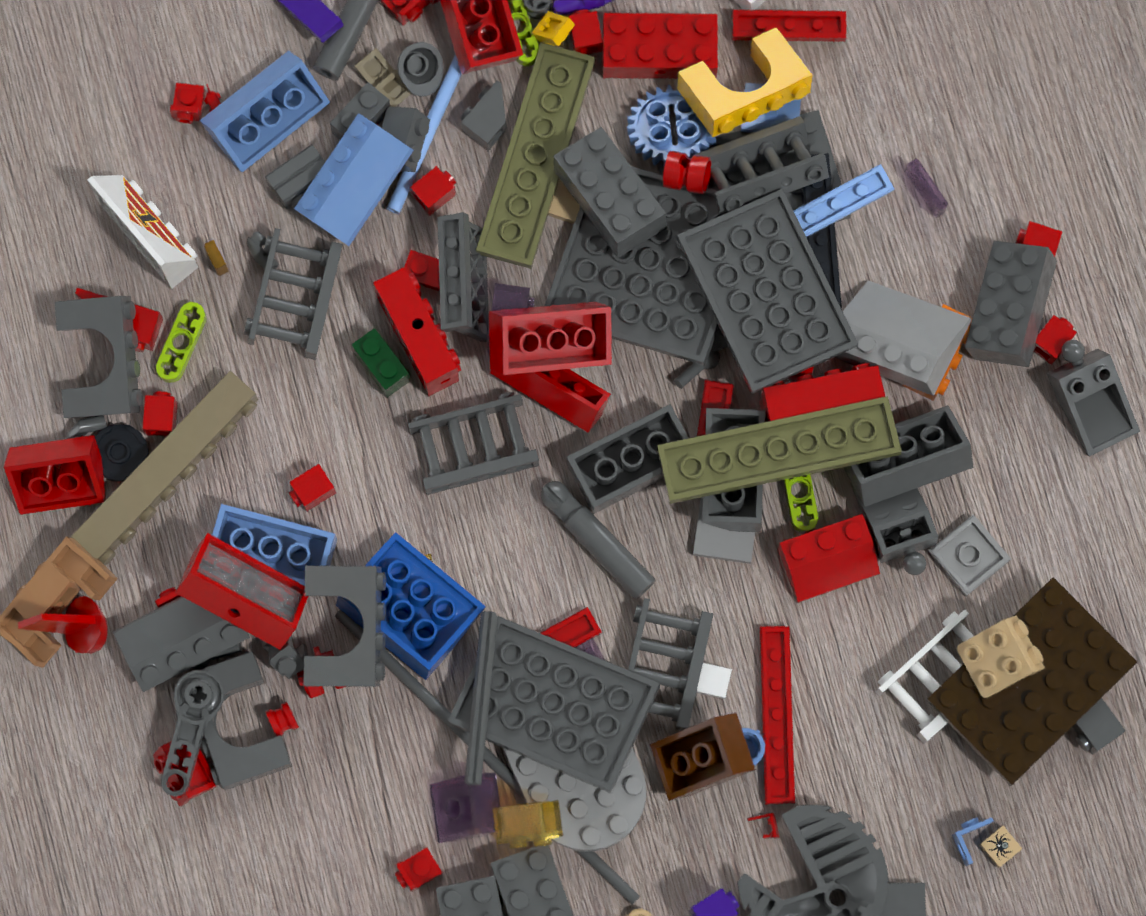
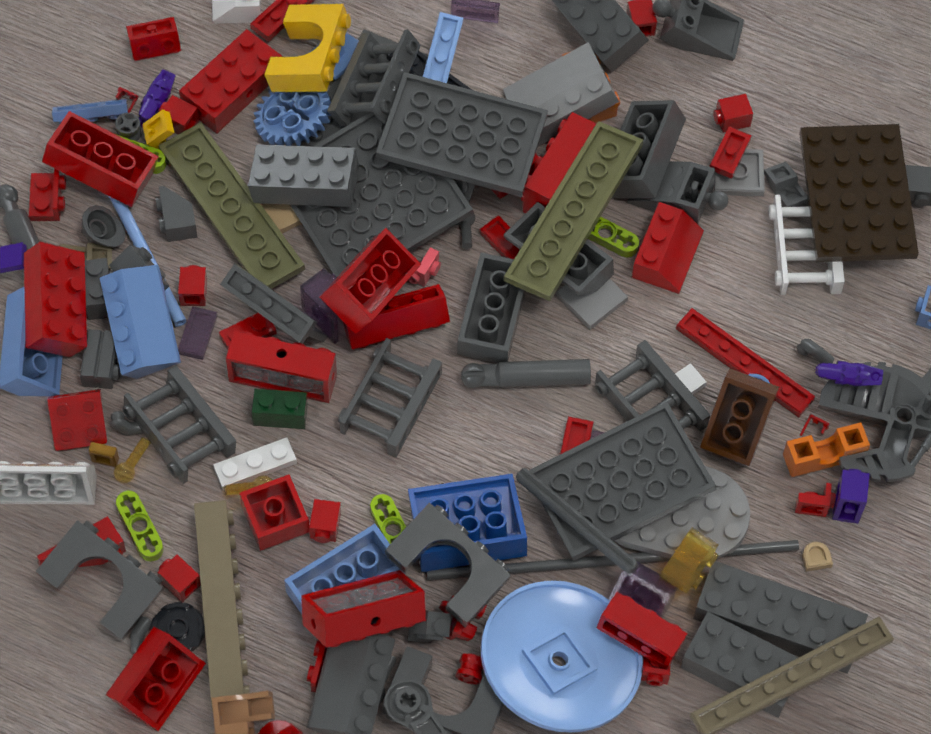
camera: 50 degrees left, 15 degrees down
(220, 286) = (125, 471): none -> clear yellow bar
(230, 206) = (77, 419): none -> red bracket
(280, 441) = (274, 512): none -> red brick
(303, 408) = (233, 489): none -> clear yellow bar
(311, 94) = (55, 299): none -> red brick
(317, 385) = (255, 463): none -> white plate
(357, 526) = (393, 515): none -> lime beam
(394, 776) = (550, 622): none -> light blue dish
(396, 232) = (197, 333): none -> clear purple tile
(431, 833) = (641, 630): none -> red brick
(626, 369) = (429, 266): none -> coral bracket
(684, 883) = (814, 504): none -> red bracket
(687, 172) = (337, 119): red wheel -> none
(743, 855) = (806, 455): none -> orange arch
(831, 818) = (850, 373): none -> dark purple hinge
(839, 766) = (808, 346): none -> dark grey arm
(976, 534) = (730, 152): none -> red plate
(992, 605) = (785, 183): none -> dark grey slope
(1000, 656) = (829, 191): tan bracket -> none
(1024, 502) = (733, 112): none -> red brick

